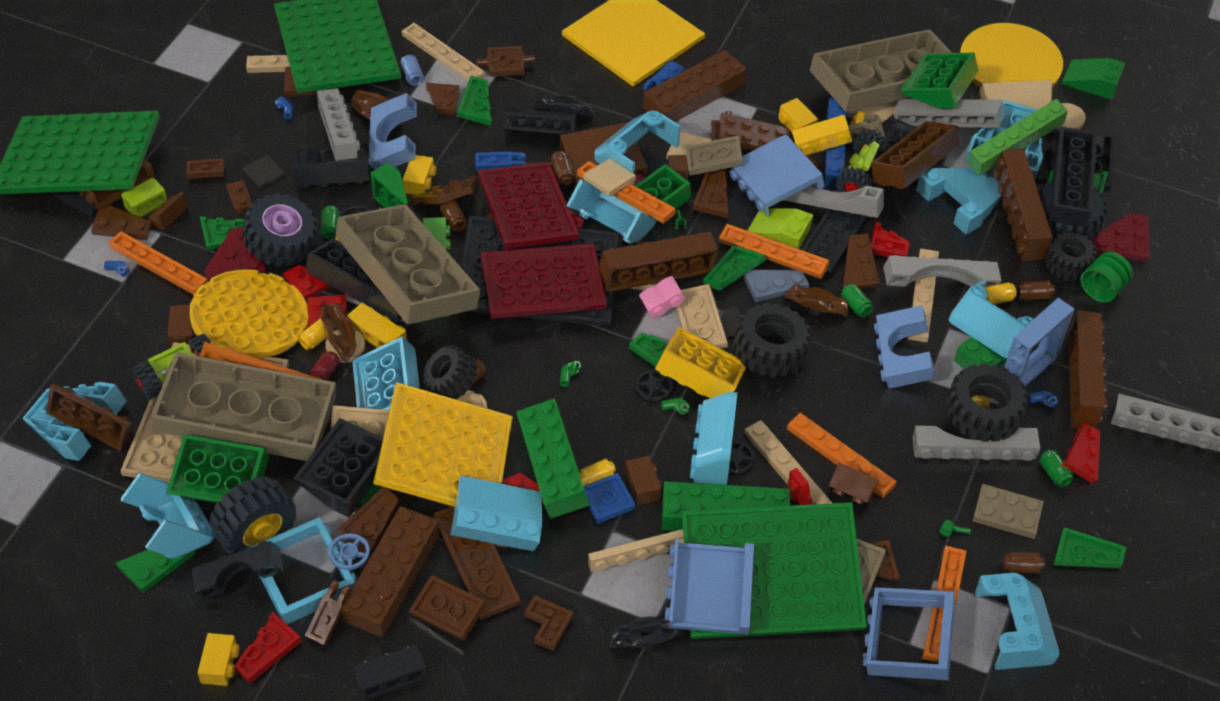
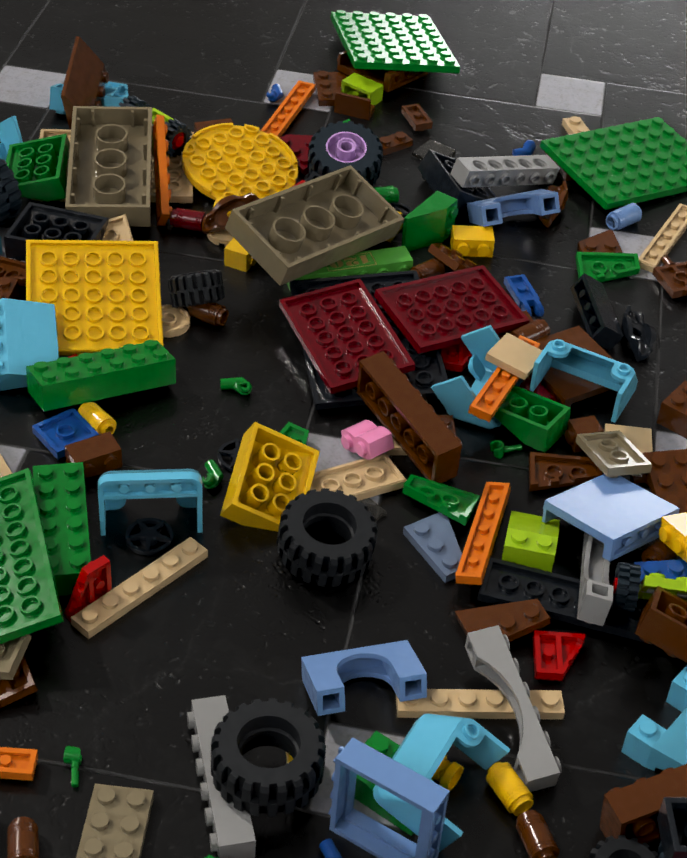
camera: 75 degrees right, 10 degrees down
(380, 370) = (193, 258): medium azure slope -> none
(817, 299) = (424, 572): reddish brown piece -> none
(838, 451) = (172, 637): orange plate -> none
(853, 483) = (121, 642): reddish brown brick -> none
(857, 300) = (434, 626): green head -> none

